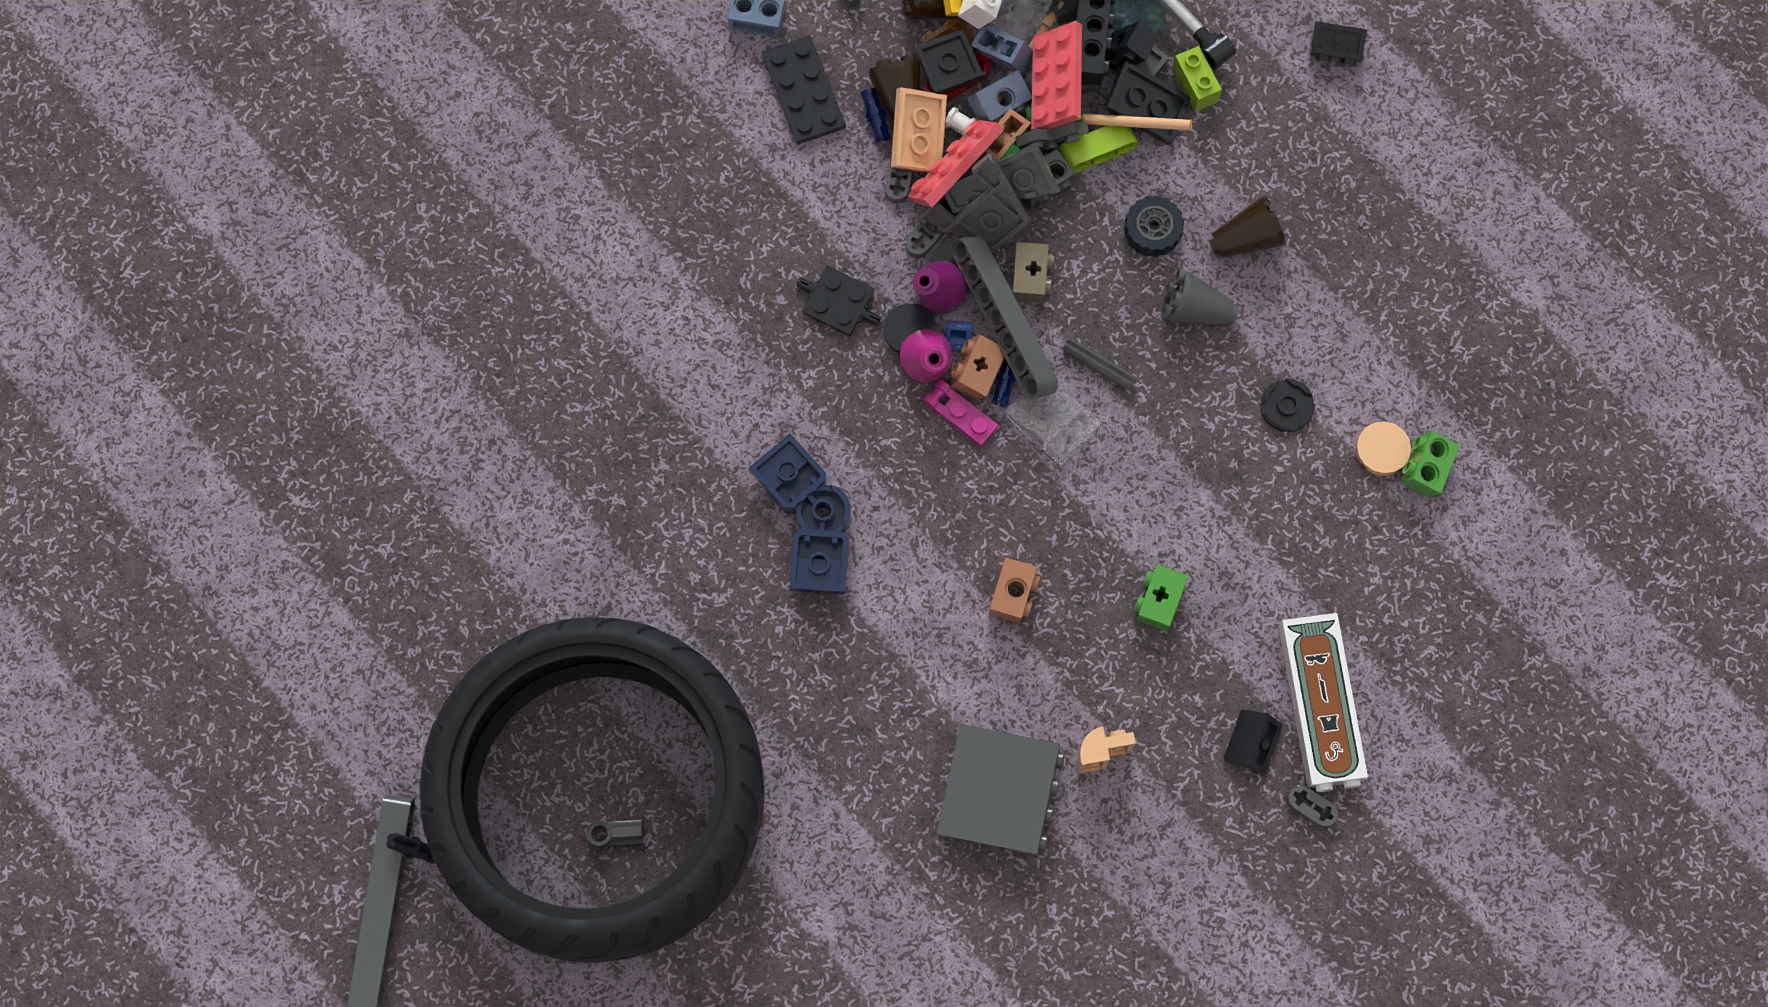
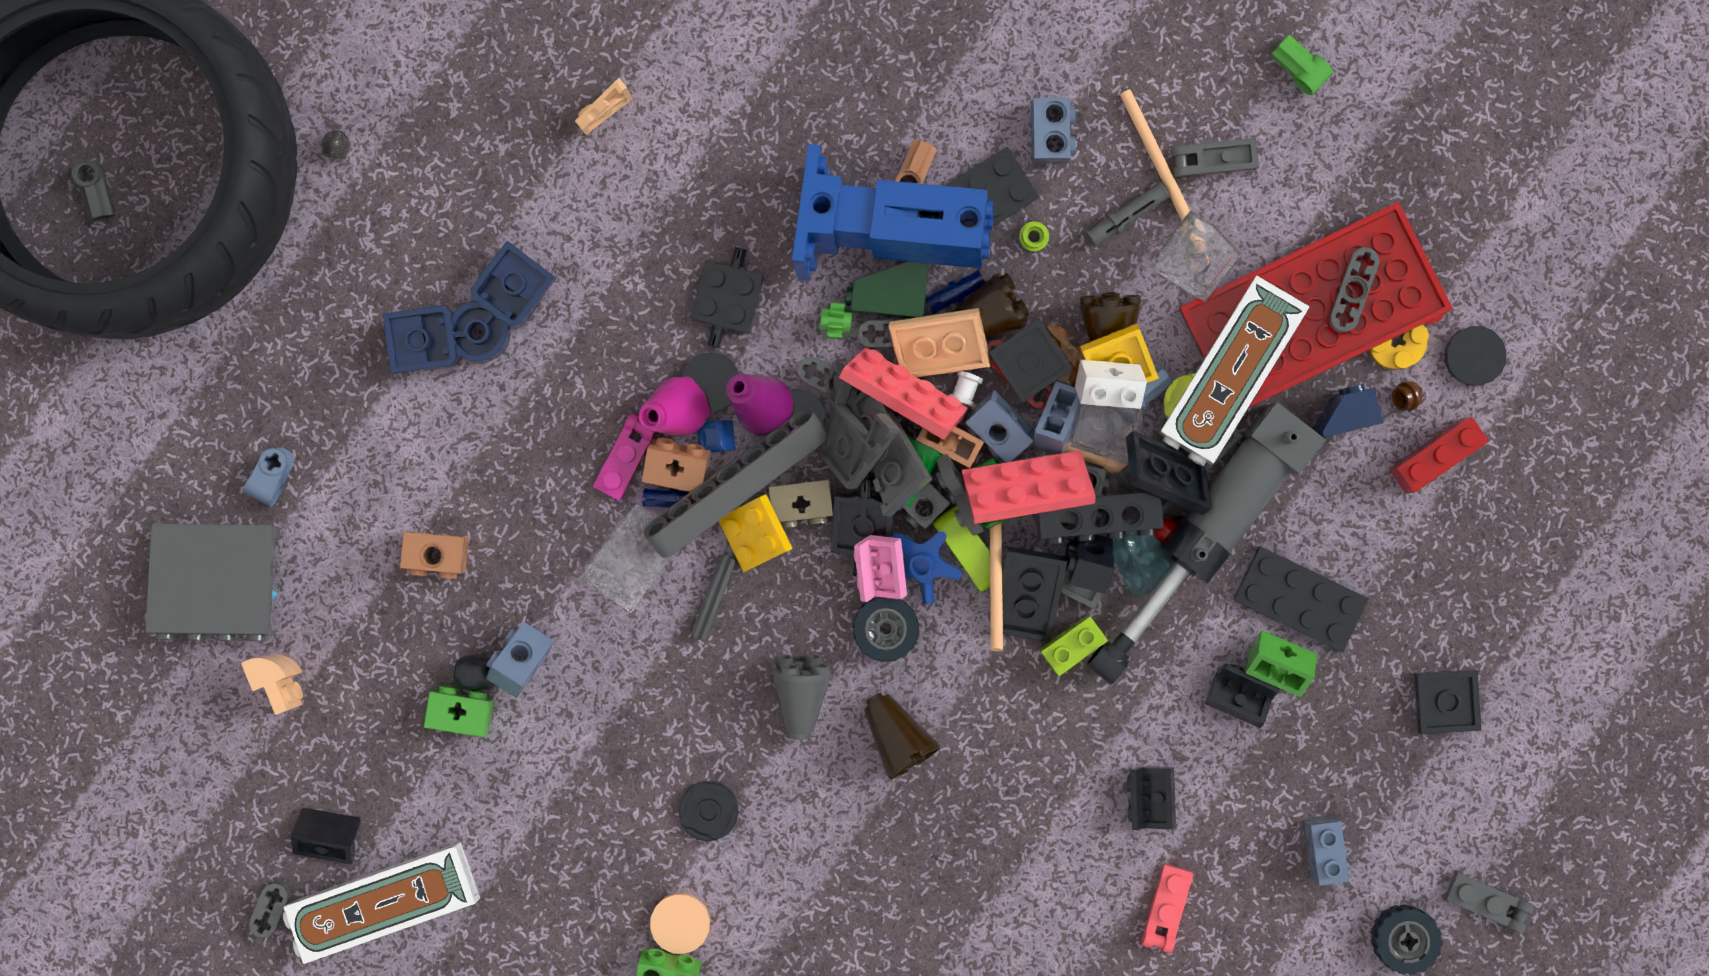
camera: 80 degrees right, 15 degrees up
(626, 605) = (335, 144): none -> clear smoke plate
(645, 359) = (605, 106): none -> light nougat wing
(764, 126) = (917, 162): none -> nougat piece
(806, 145) = (892, 220): none -> blue brick
(842, 39) = (1034, 227): none -> lime plate
(865, 163) = (891, 292): none -> dark green slope
(879, 213) = (836, 320): none -> bright green gear
(917, 728) = (266, 480): none -> sand blue piece
(1052, 312) = (755, 533): none -> yellow plate
(1063, 225) = (857, 518): none -> black plate
(1101, 212) = (880, 568): none -> bright pink bracket
(1104, 182) = (924, 563): none -> blue animal
(1124, 531) = (514, 675): none -> sand blue brick
(1128, 575) = (472, 673): none -> black animal
(1434, 51) = (1167, 907): none -> coral plate

